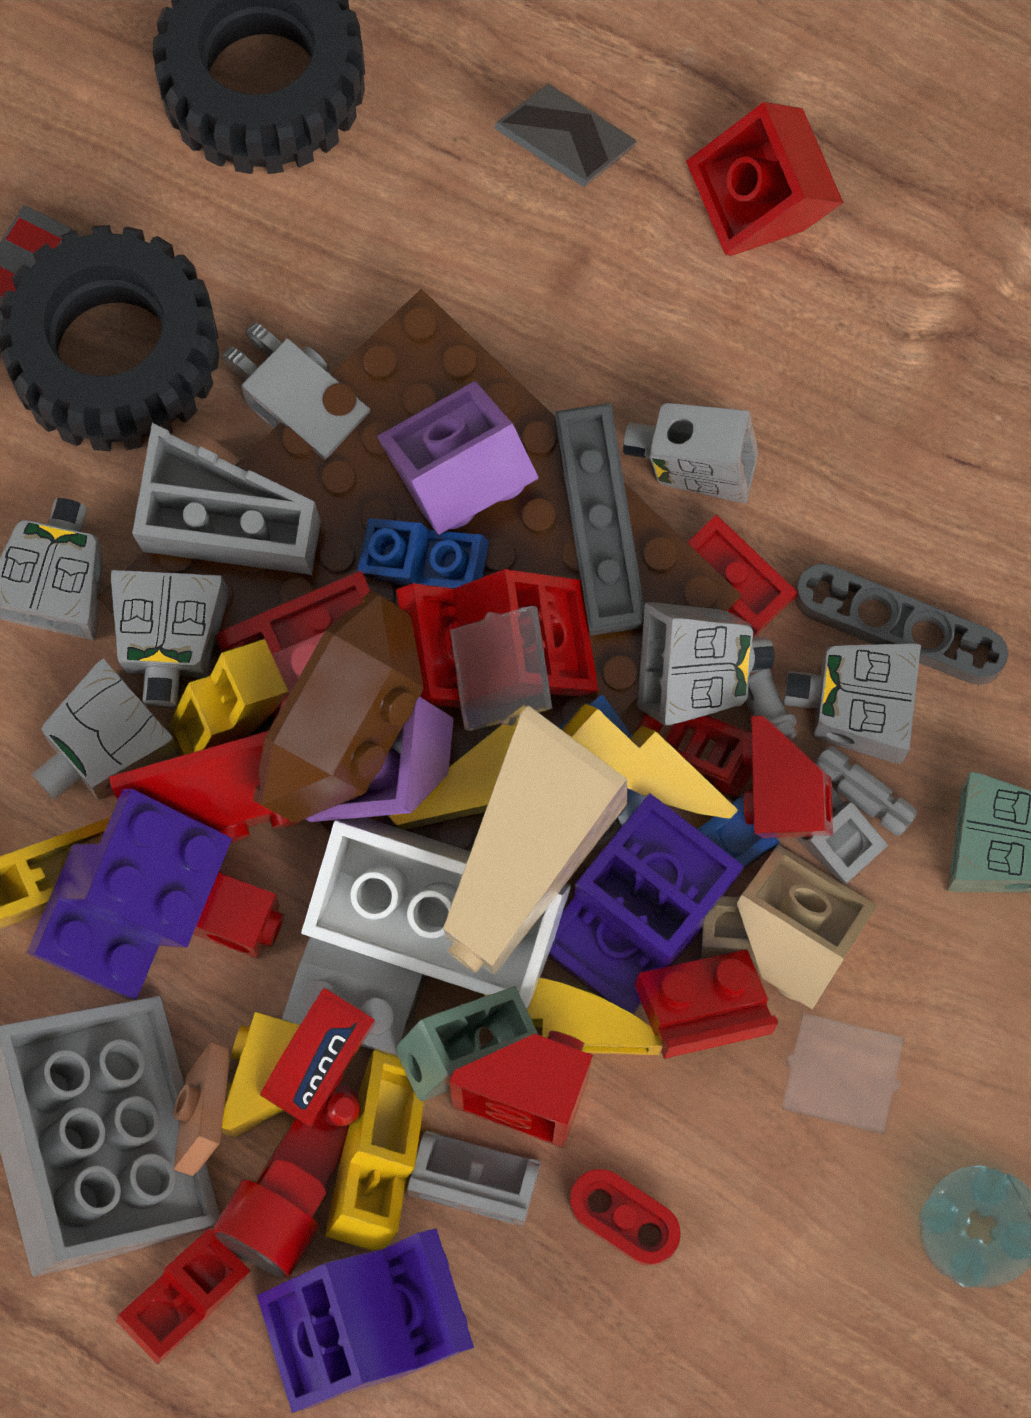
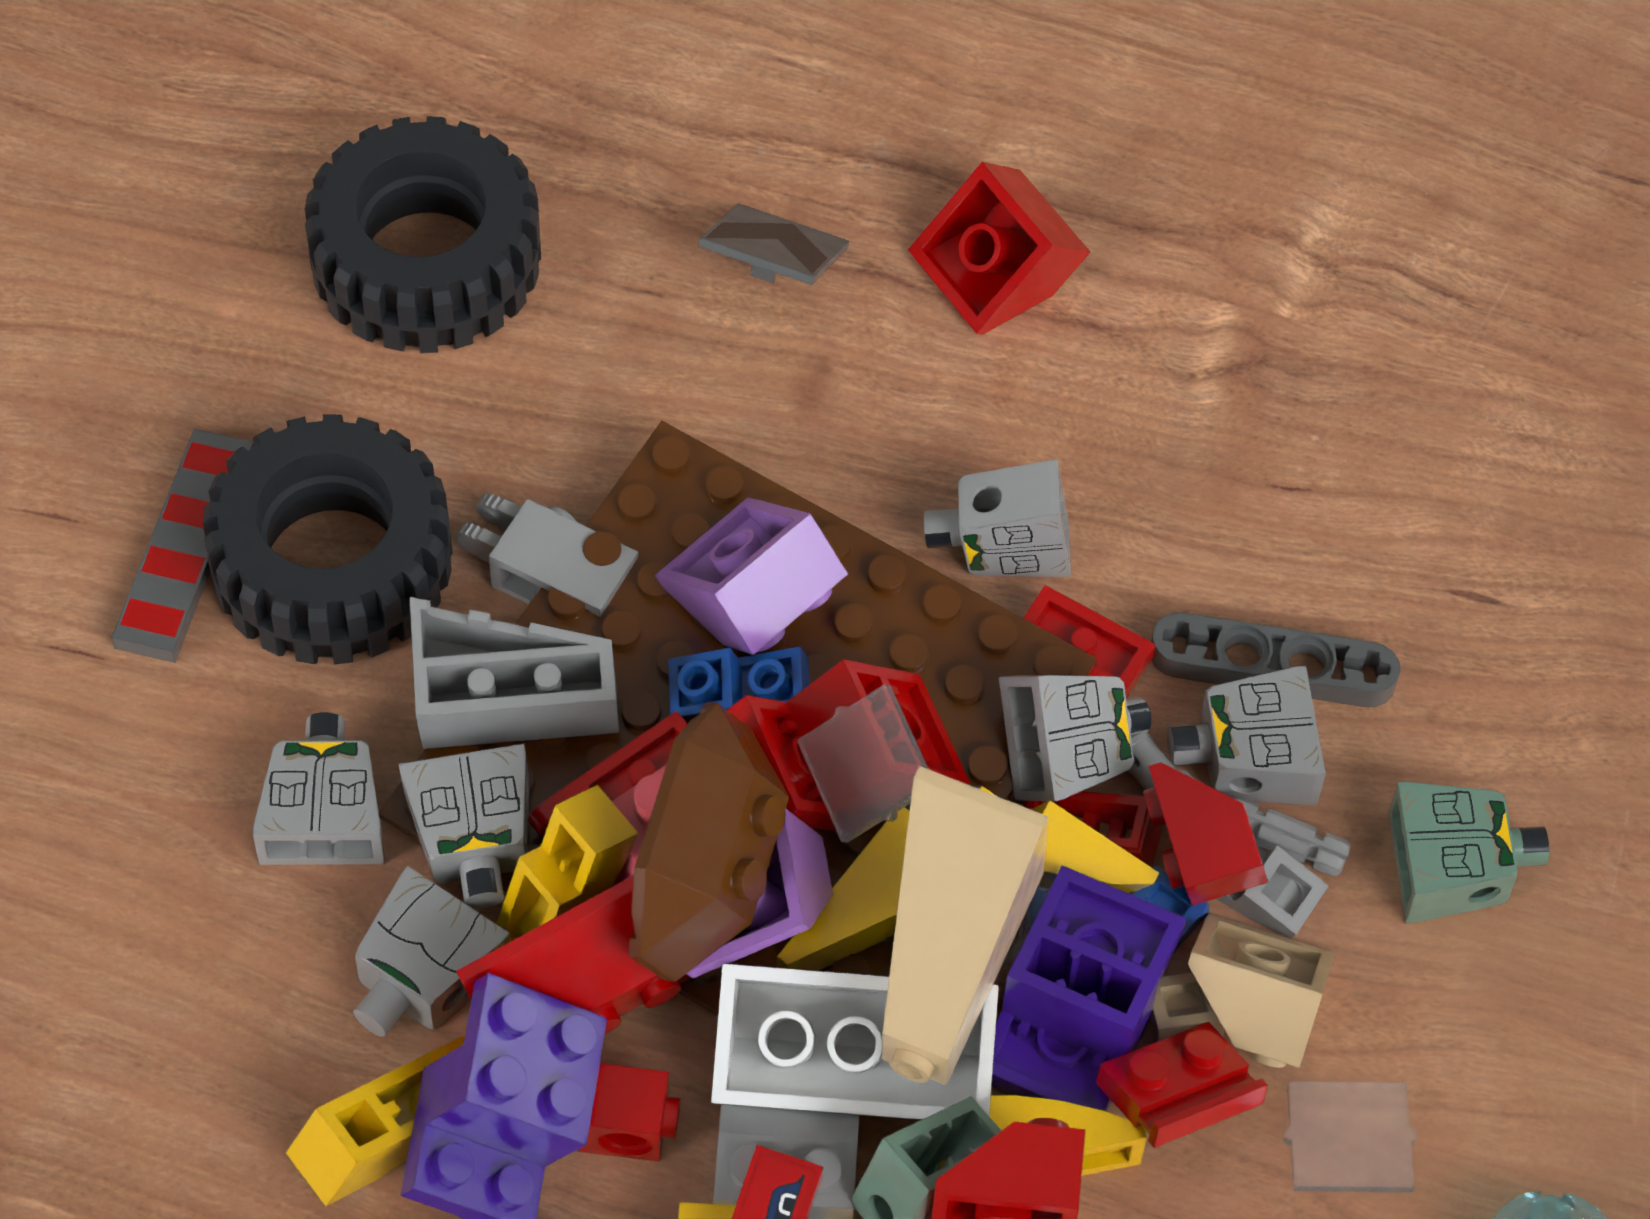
camera: 15 degrees left, 15 degrees down
(600, 519) = (924, 608): dark grey tile -> none

